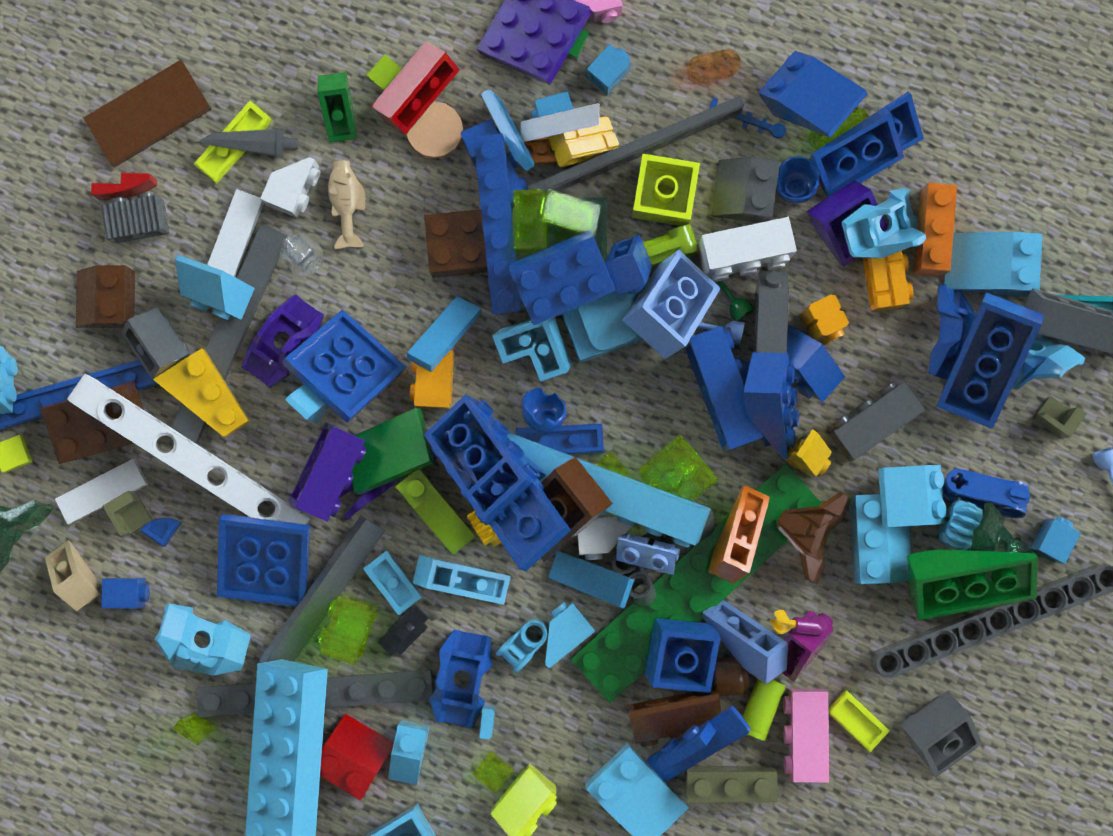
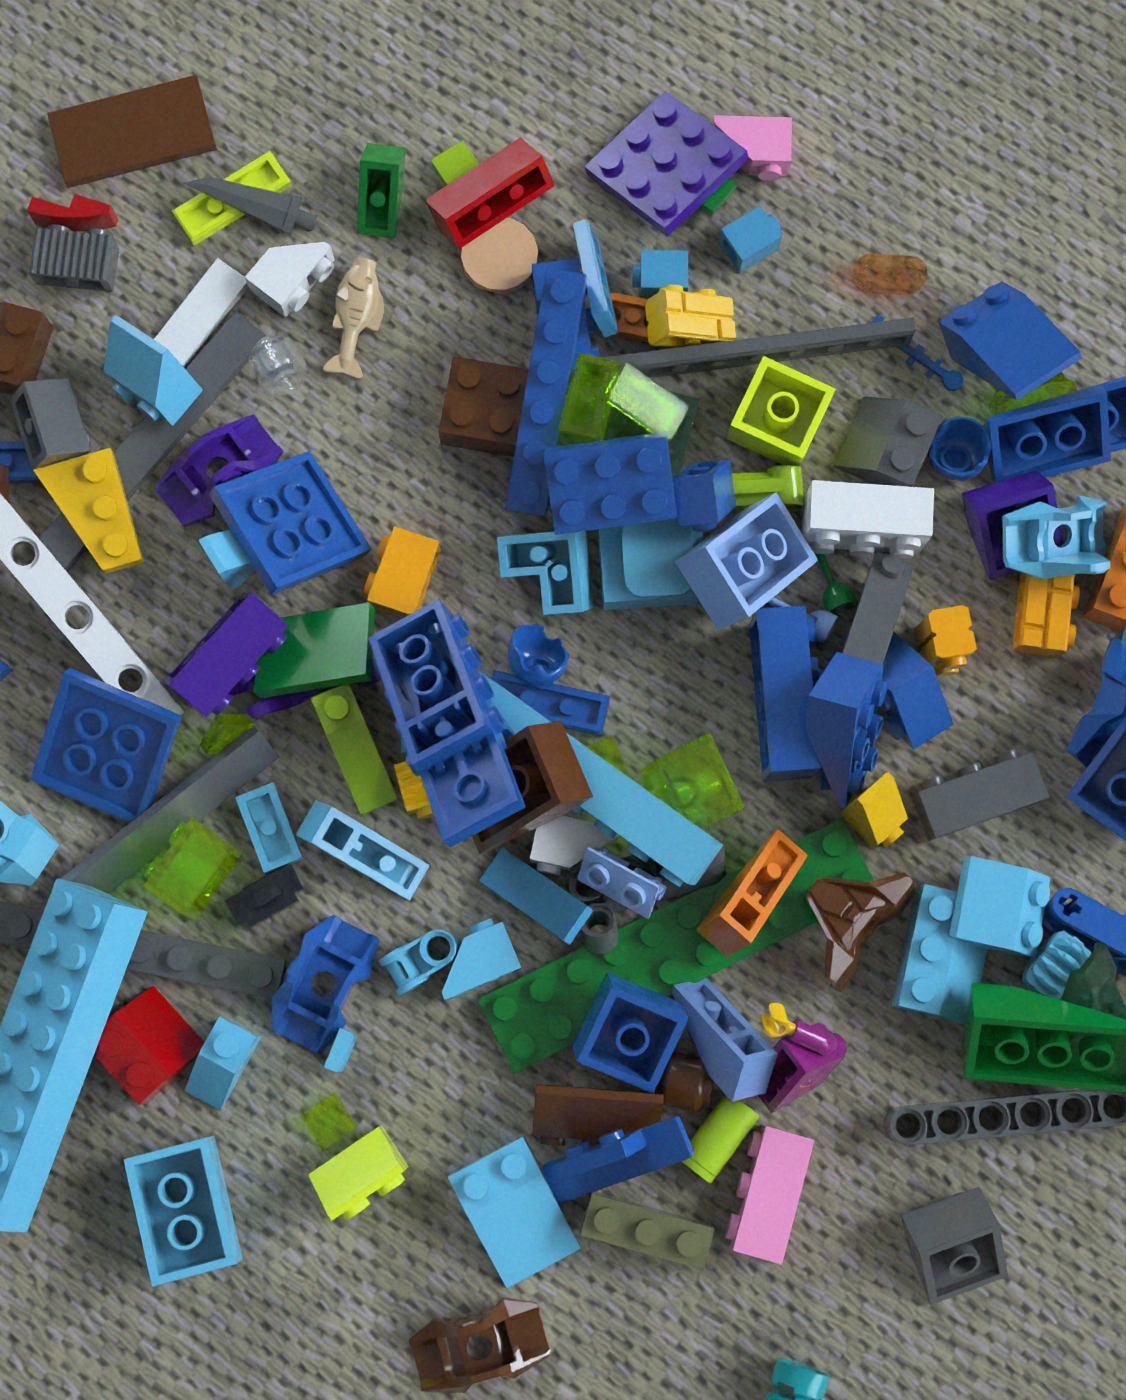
camera: 10 degrees right, 5 degrees down
(342, 525) = (224, 731): none -> clear neon green tile
(444, 333) = (434, 517): dark azure tile -> none
(560, 122) = (666, 285): white sticker -> none
(857, 720) = (844, 1195): neon yellow tile -> none

